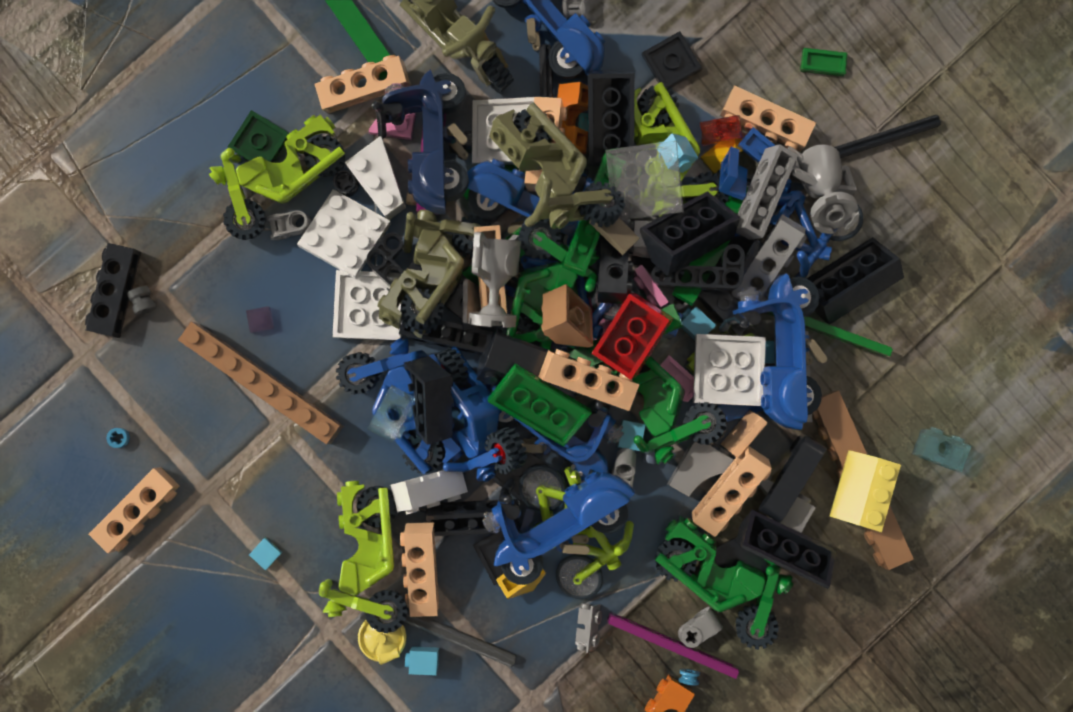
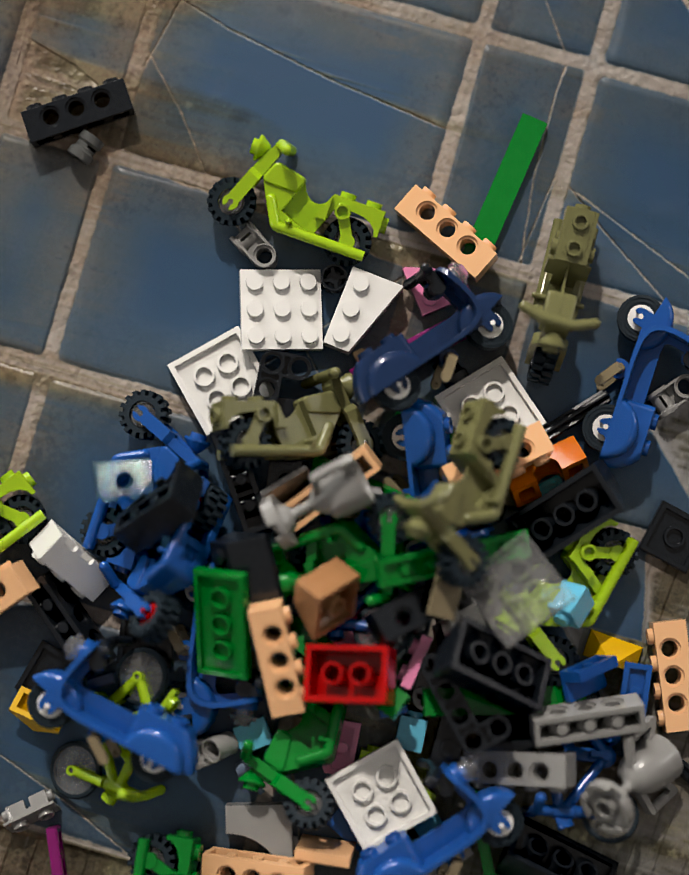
camera: 60 degrees right, 0 degrees up
(258, 138) = (324, 161): dark green plate -> none
(260, 319) = (140, 278): clear purple plate -> none
(261, 383) = (75, 322): medium nougat brick -> none
(539, 339) = (288, 581): none -> green hinge
(721, 130) = (629, 634): clear red hips -> none

